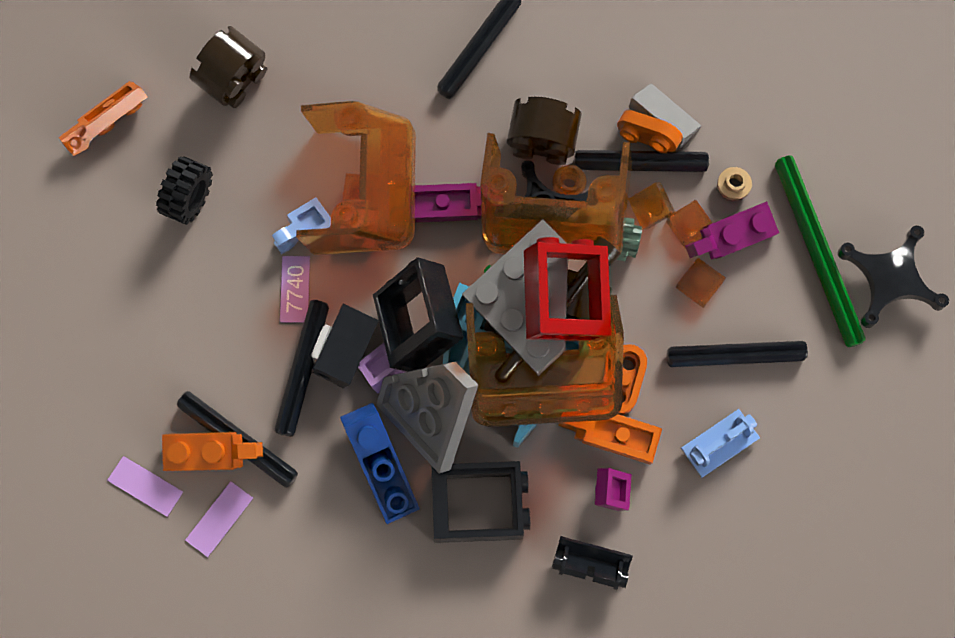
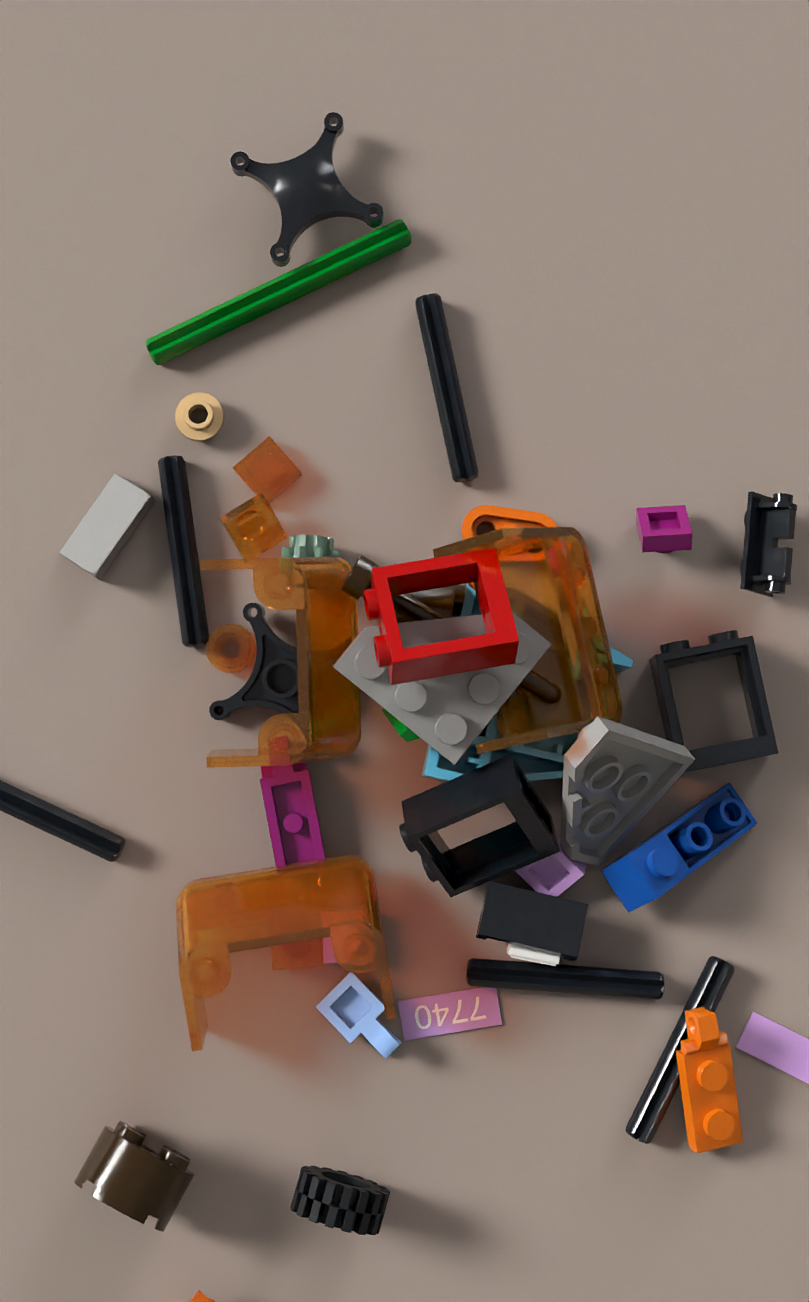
camera: 95 degrees left, 10 degrees up
(145, 486) = (763, 1164): lavender sticker -> none
(543, 129) = (167, 693): dark brown brick -> none
(619, 436) = (592, 513): orange hinge -> none
(649, 131) = (149, 527): orange plate -> none
(700, 282) = (351, 447): clear orange plate -> none
(721, 442) = (572, 396): light blue hinge -> none
(735, 232) = (276, 408): magenta hinge -> none

